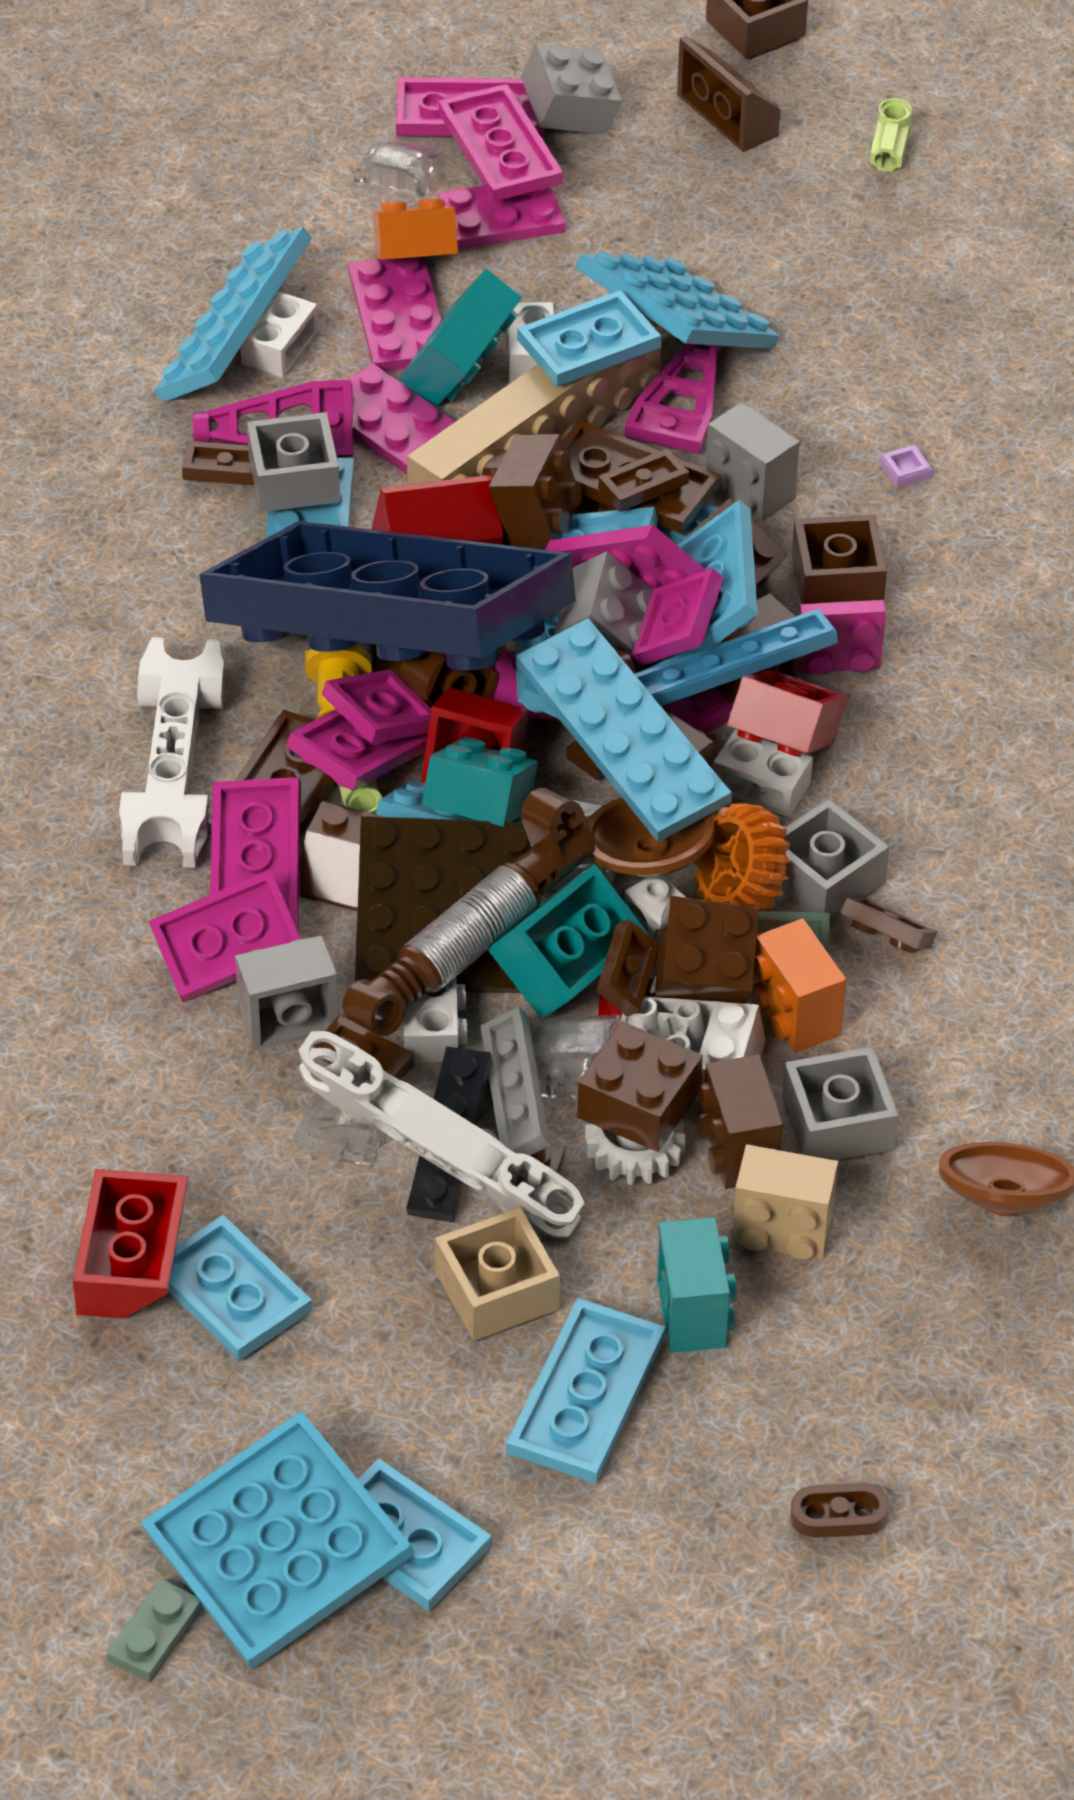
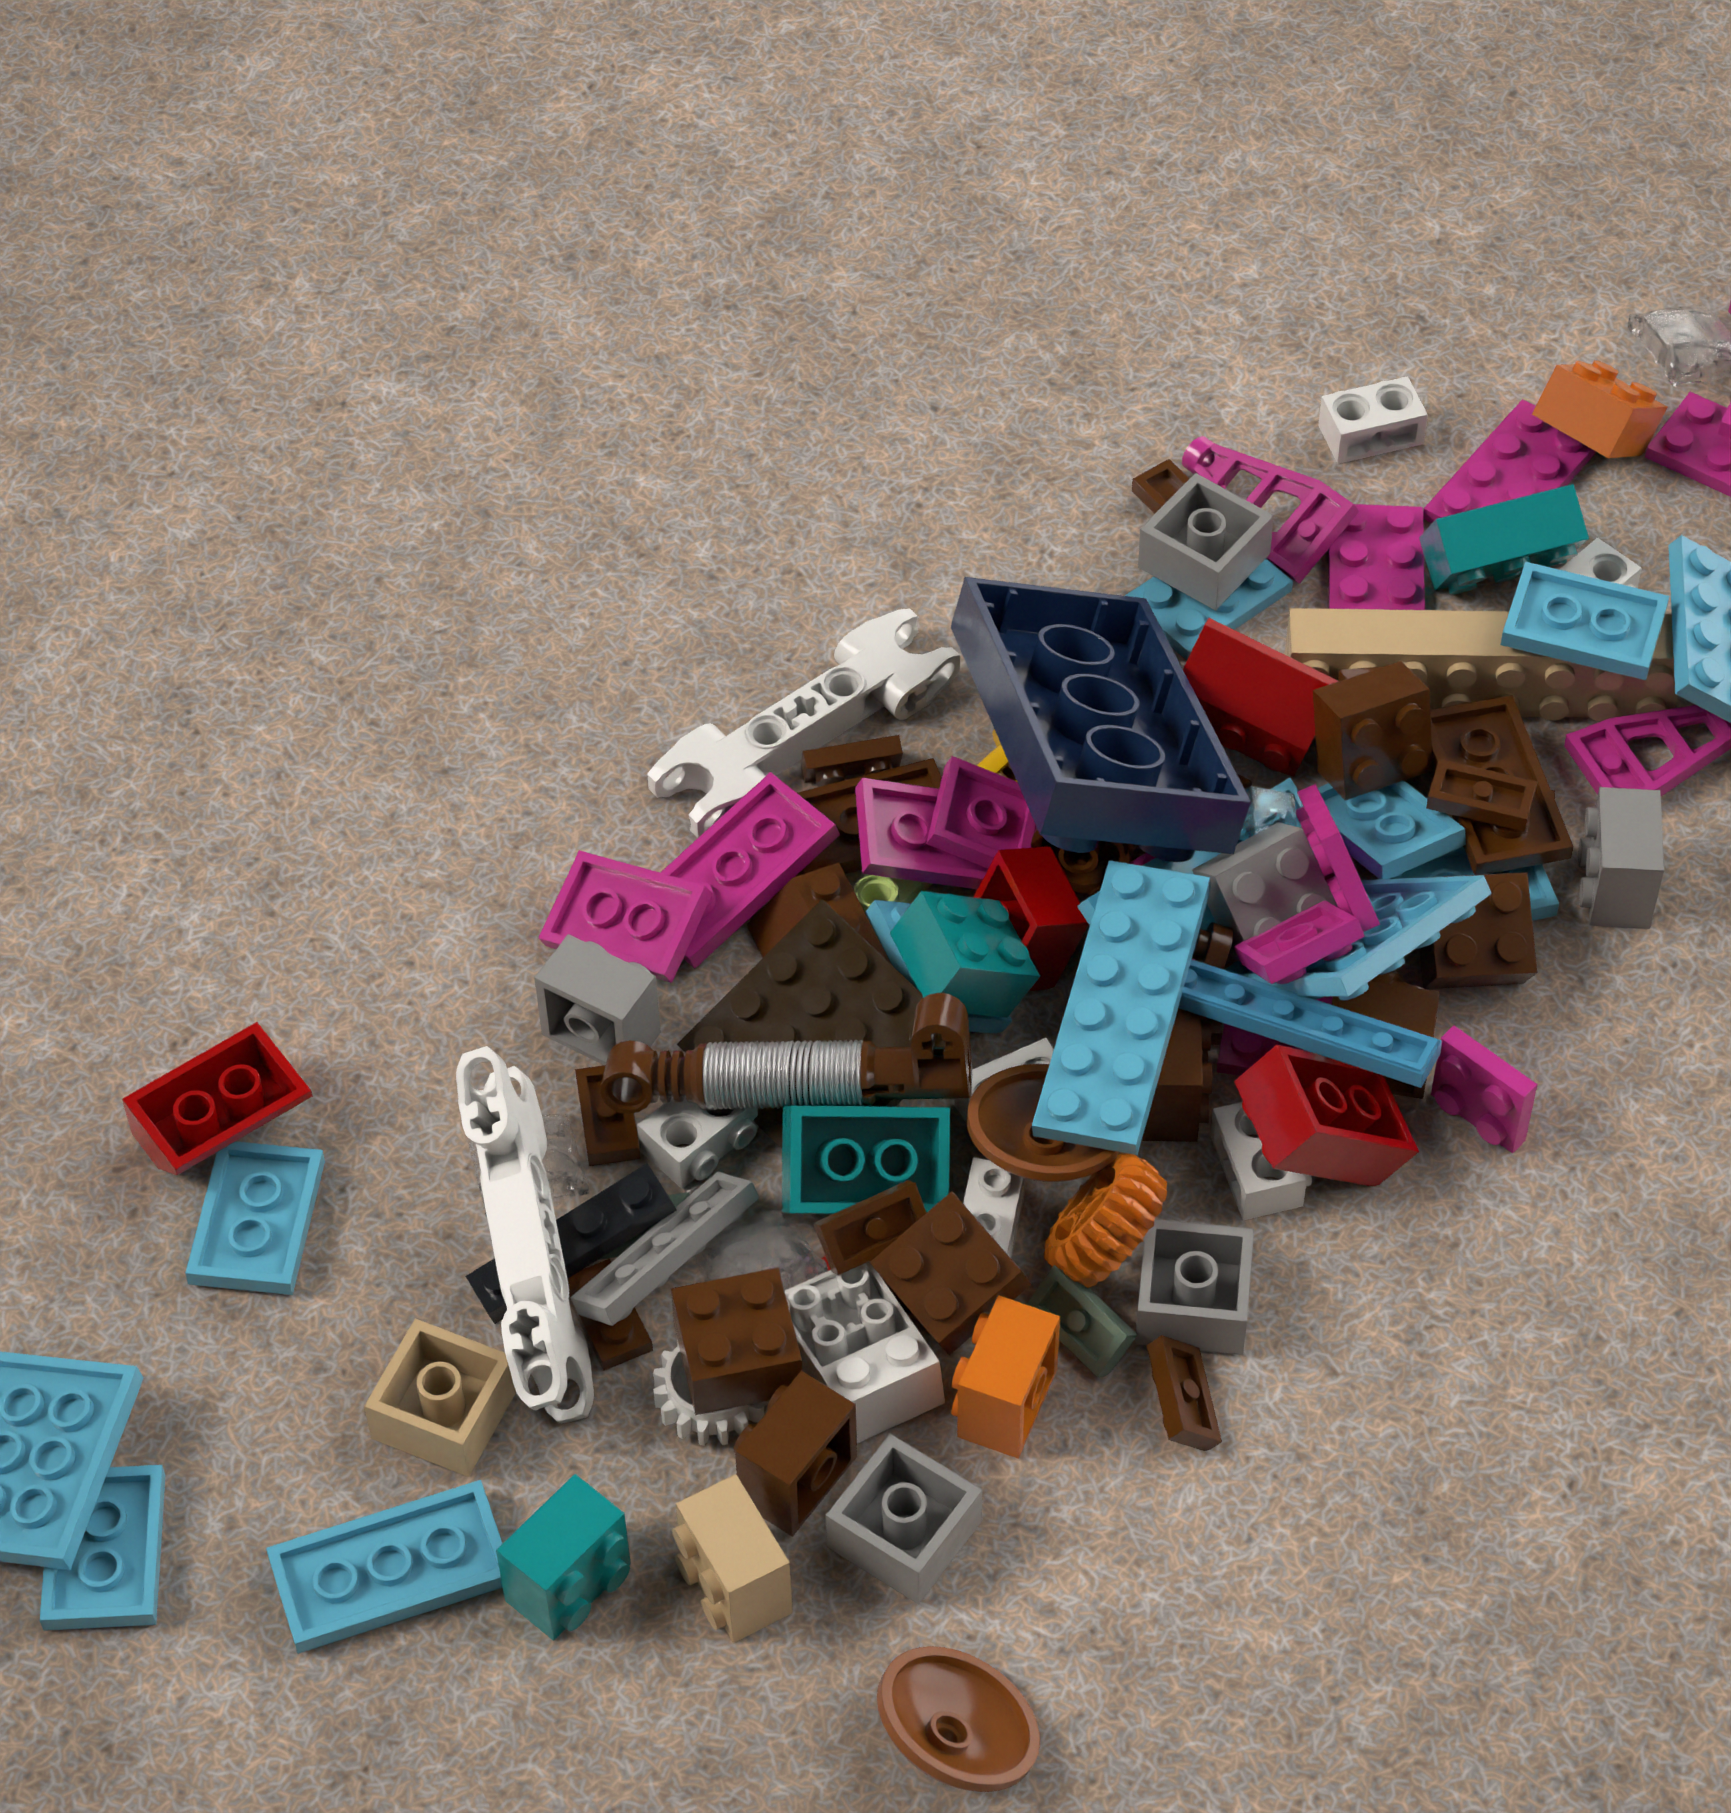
camera: 50 degrees right, 5 degrees up
(225, 760) = (835, 762): none -> reddish brown plate
(232, 314) = (1360, 368): medium azure plate -> none
(838, 559) = (1584, 1019): reddish brown brick -> none

